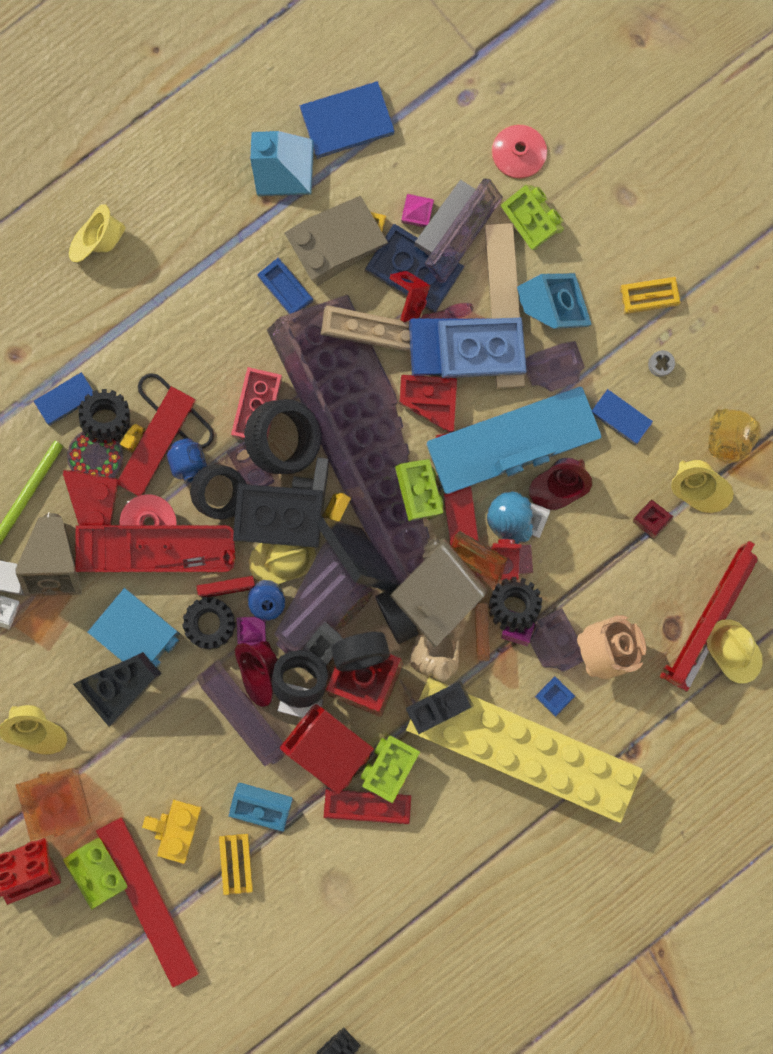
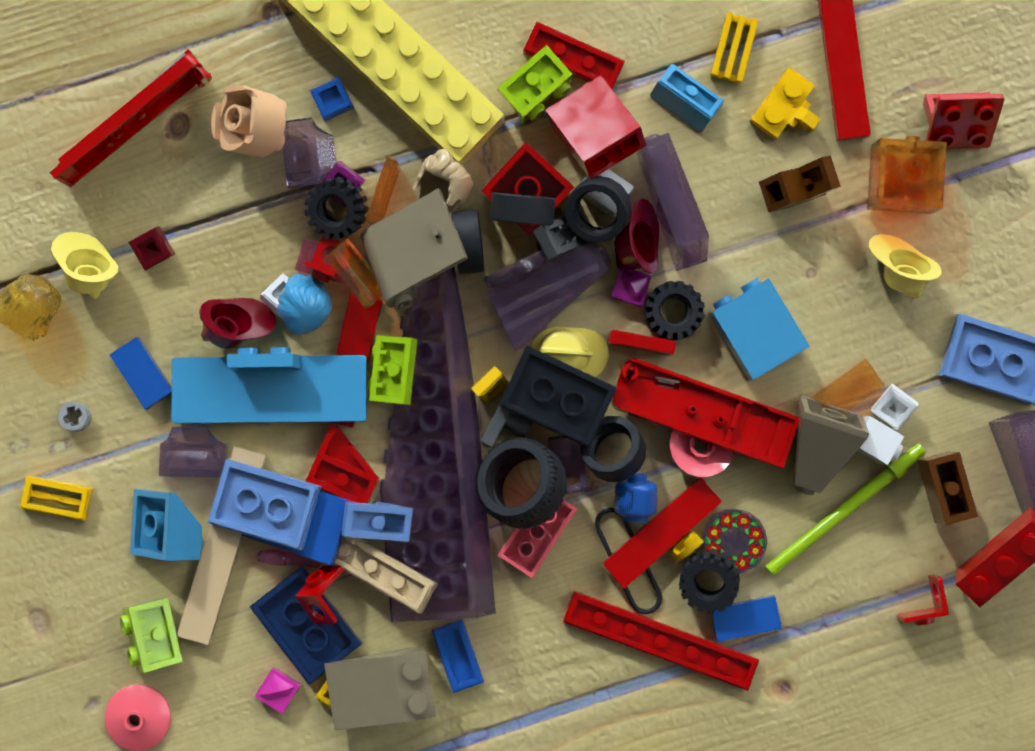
camera: 165 degrees left, 5 degrees up
(91, 497) = (754, 495): red wing -> none
(95, 873) = (886, 89): lime bracket -> none
(118, 686) = (796, 276): black wing -> none
(128, 357) = (661, 640): none -> red tile
(141, 764) = (799, 184): none -> reddish brown brick
(266, 600) = (603, 311): blue head -> none
(358, 555) = (486, 318): black tile -> none
(387, 366) = (377, 521): none -> medium blue slope
(439, 707) = (458, 122): black slope -> none
(444, 217) = (246, 665): light grey tile -> none
(464, 230) = (233, 646): tile -> none
(735, 651) = (119, 73): light yellow piece -> none

